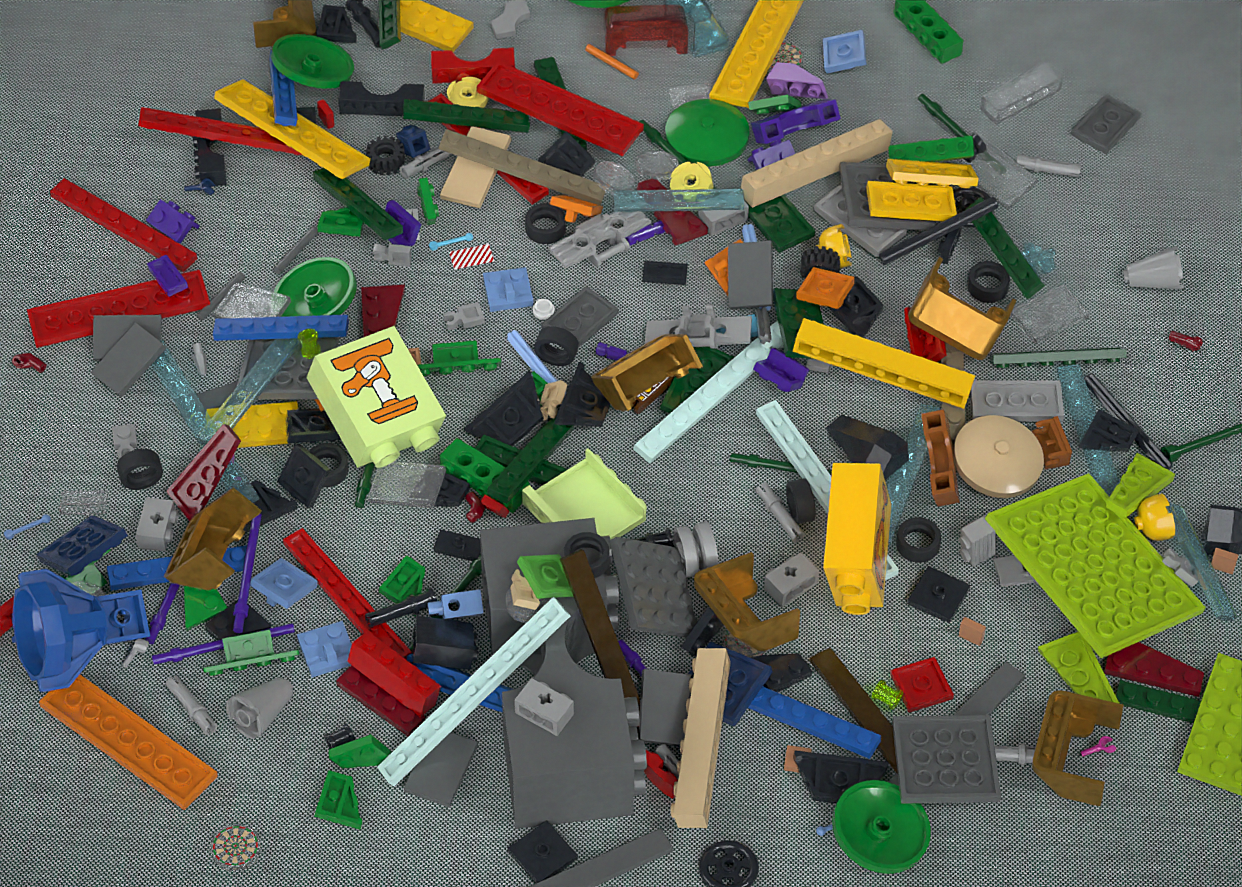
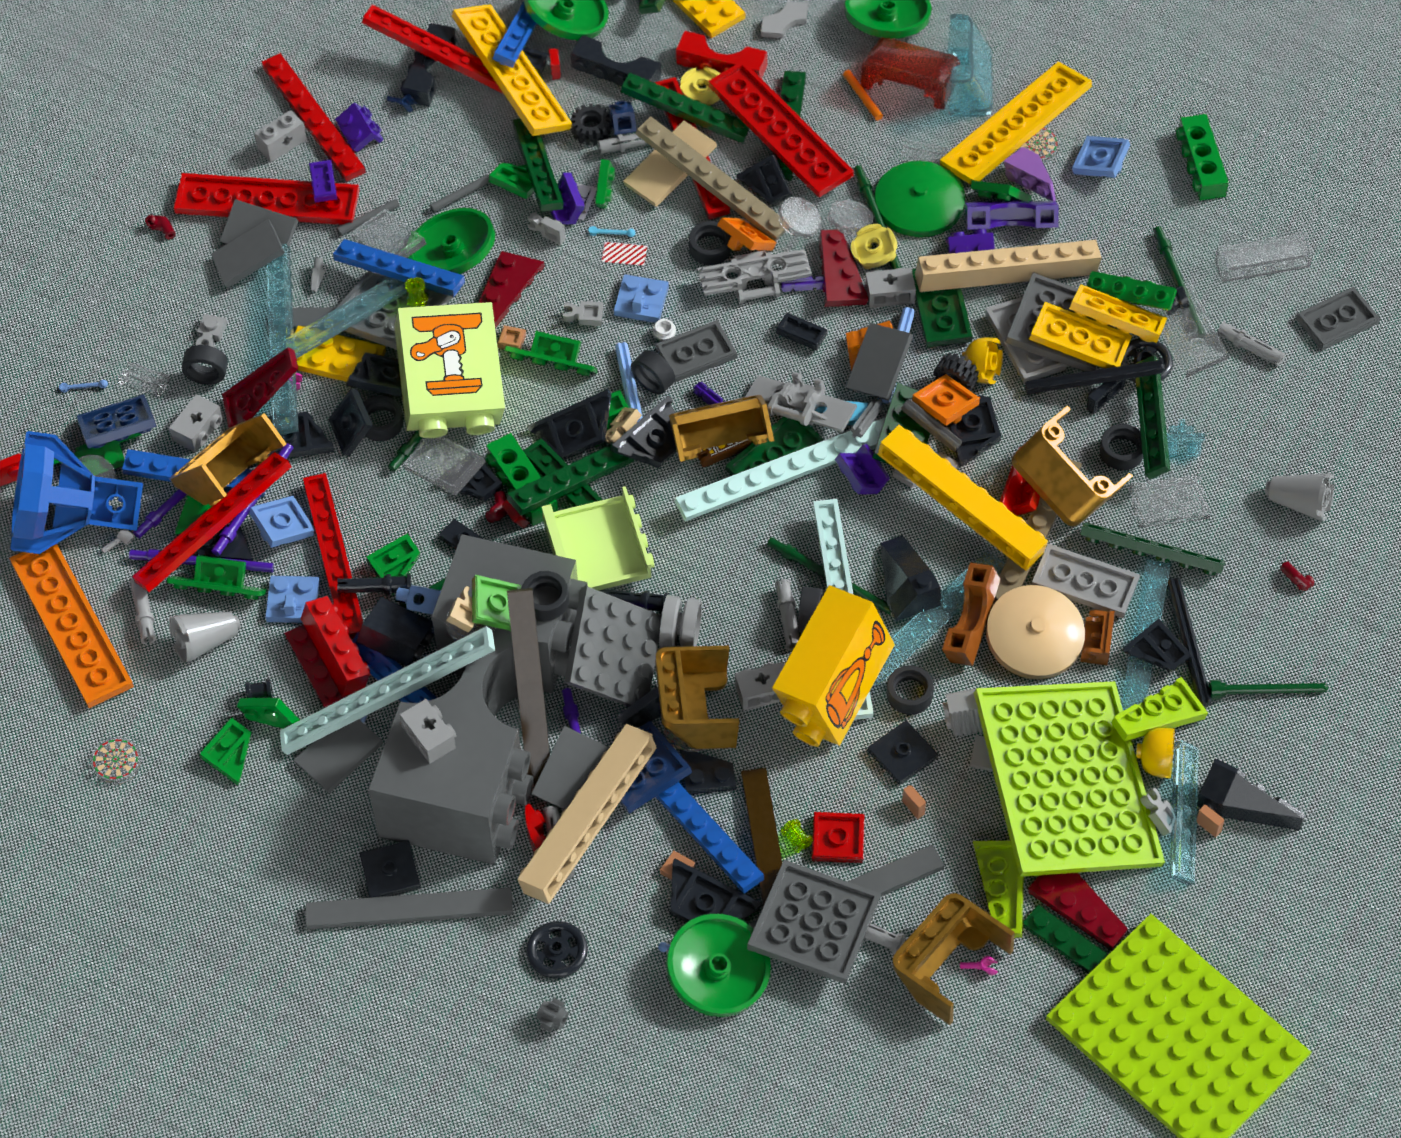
camera: 25 degrees right, 5 degrees up
(104, 249) = (280, 136): none -> light grey brick
(221, 605) = (211, 522): none -> red plate
(678, 200) = (847, 261): clear light blue tile -> none
(823, 313) = (931, 425): none -> dark grey axle

